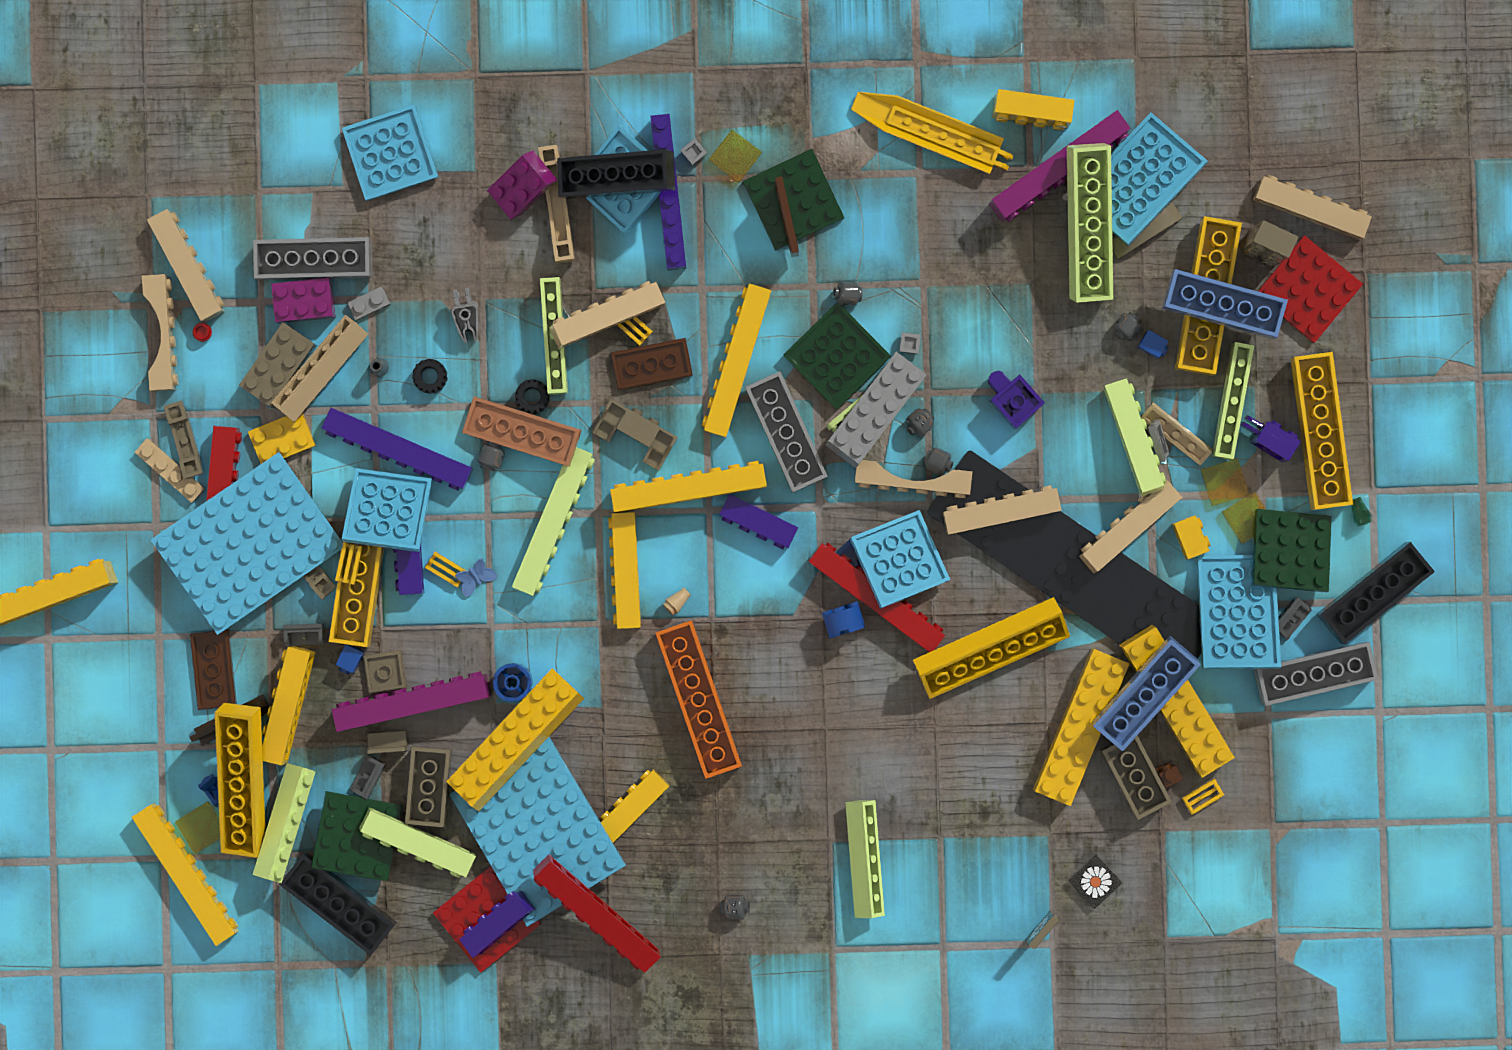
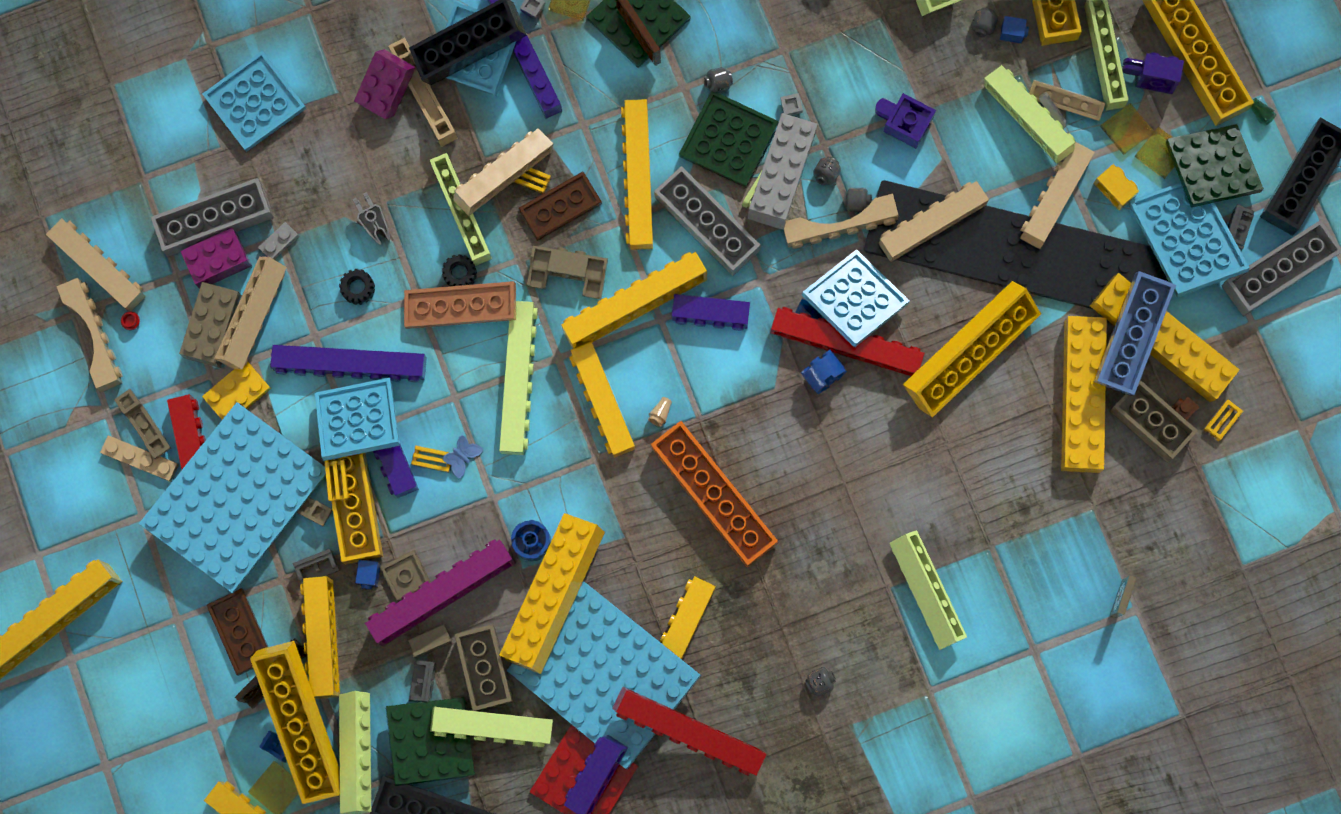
camera: 15 degrees left, 10 degrees down
(383, 367) = (307, 298): dark grey cone -> none
(491, 457) = (439, 340): dark grey head -> none
(1095, 881) = (1154, 535): tile -> none

